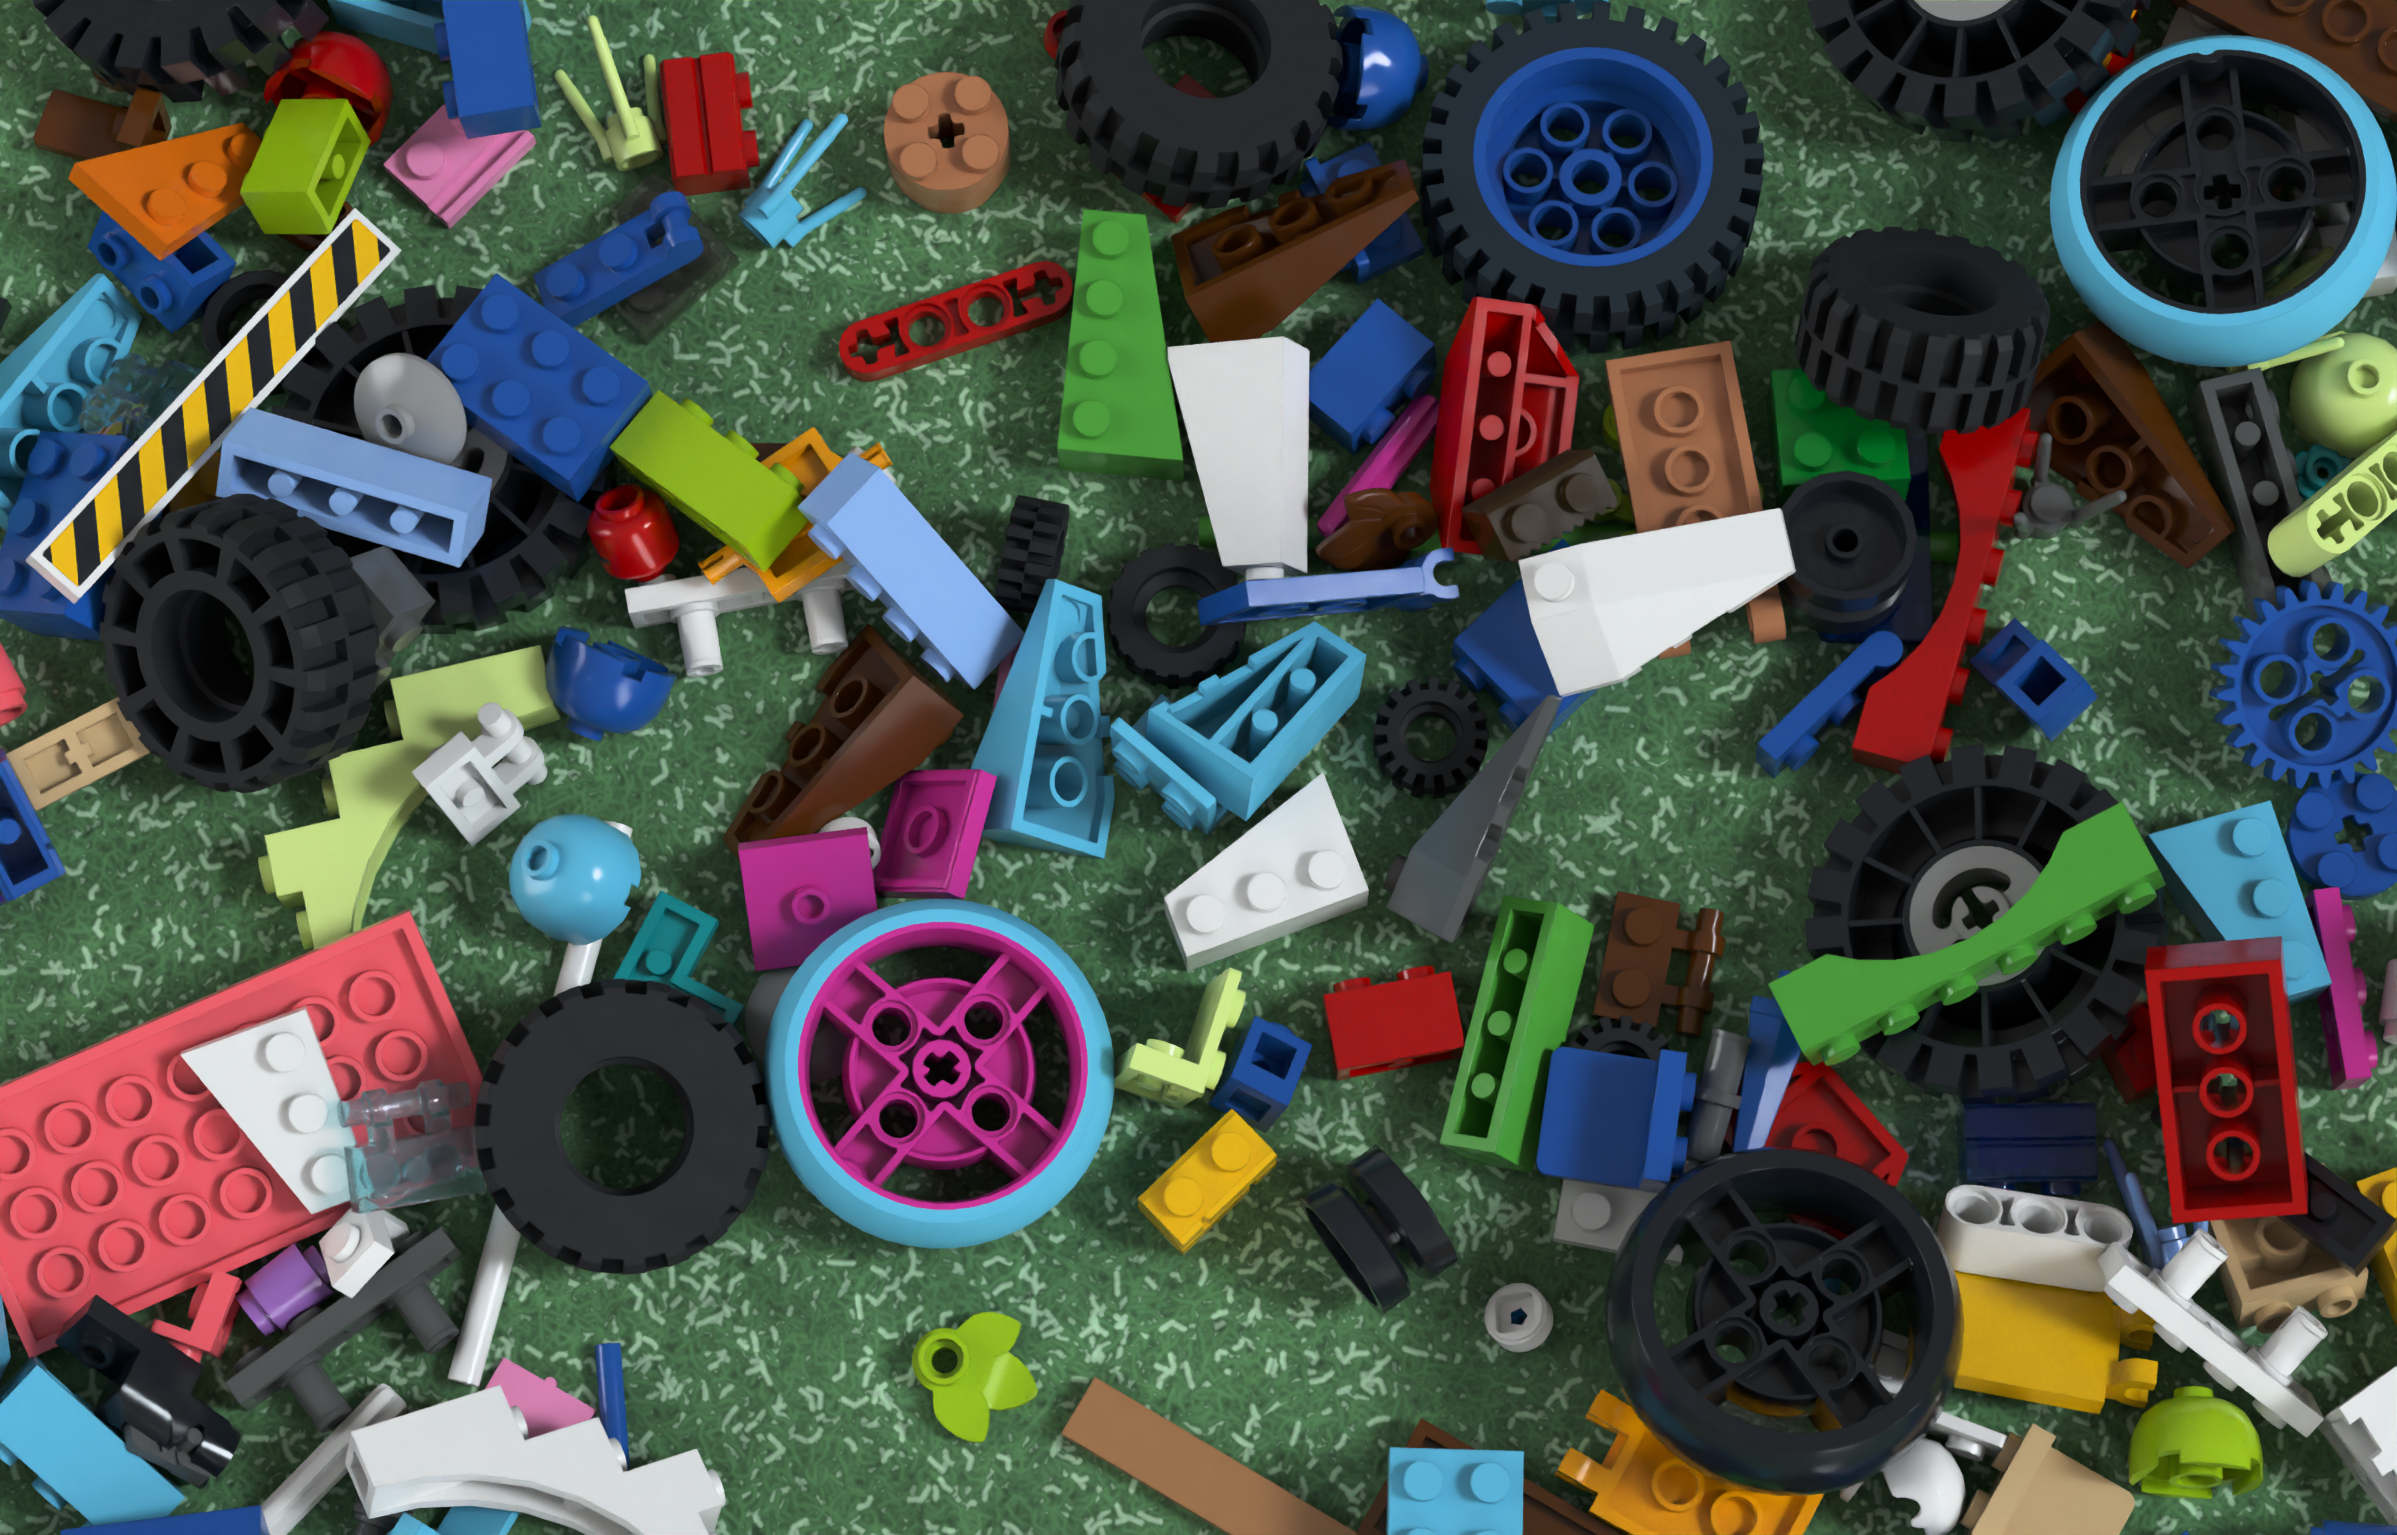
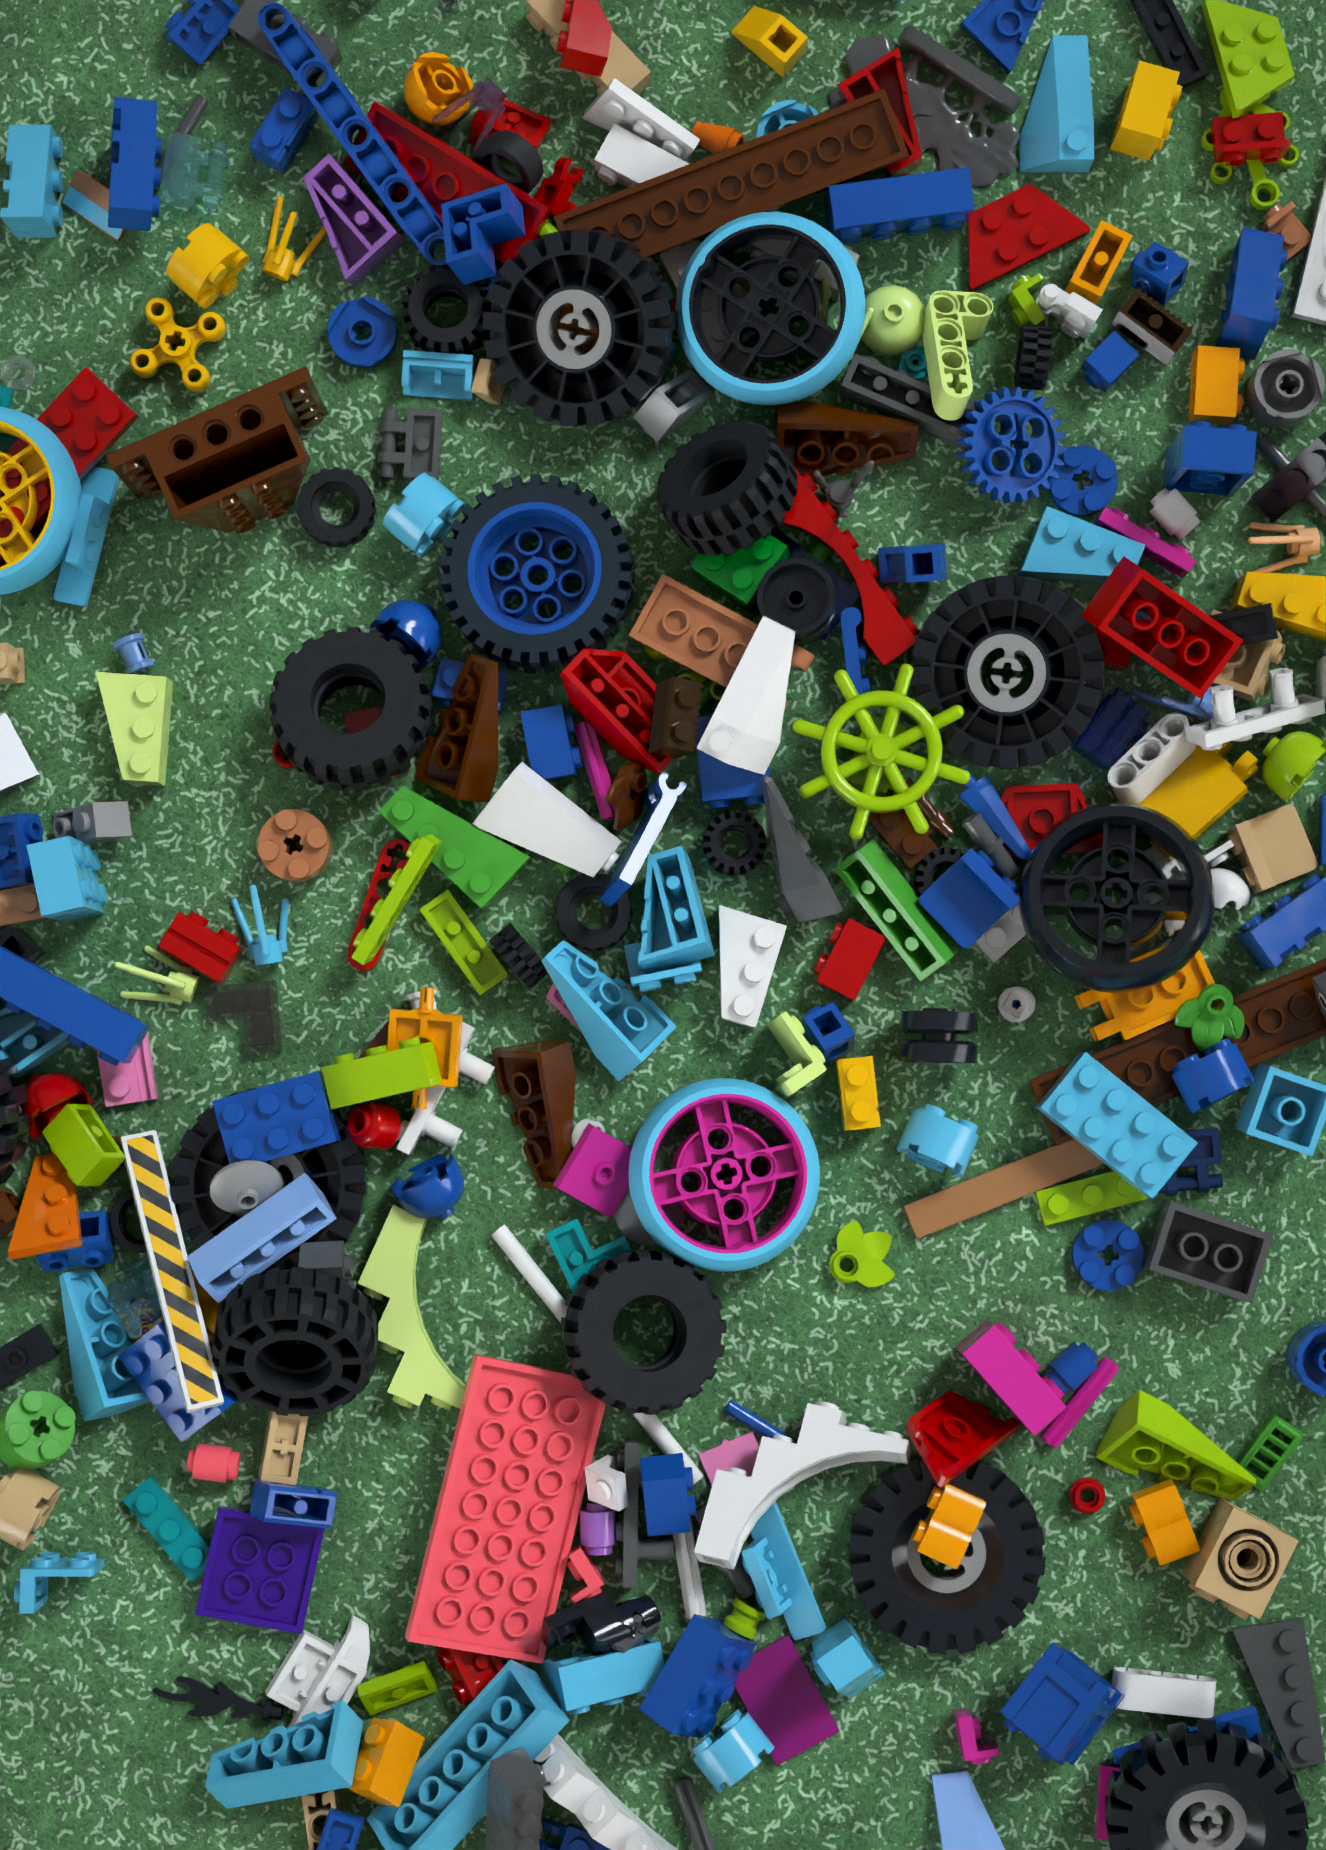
camera: 55 degrees left, 10 degrees up
(283, 1100) = (521, 1471): white wing -> none
(407, 1339) = (665, 1494): none -> blue brick
(412, 1167) = (591, 1435): clear light blue plate -> none
(463, 779) = (435, 1278): white plate -> none
(574, 877) = (511, 1267): medium azure cylinder -> none
(621, 261) = (238, 1036): blue plate -> none
(910, 571) = (491, 1017): light blue brick -> none
(933, 833) = (613, 1095): dark pink plate -> none
(959, 324) = (388, 910): none -> lime plate
(993, 470) = (464, 942): none -> lime plate
(1228, 1348) = (938, 1140): none -> medium azure brick
(1725, 832) = (878, 751): none -> lime piece
(1981, 186) = (672, 405): none -> light grey slope
(2090, 875) = (1031, 613): bright green arch -> none

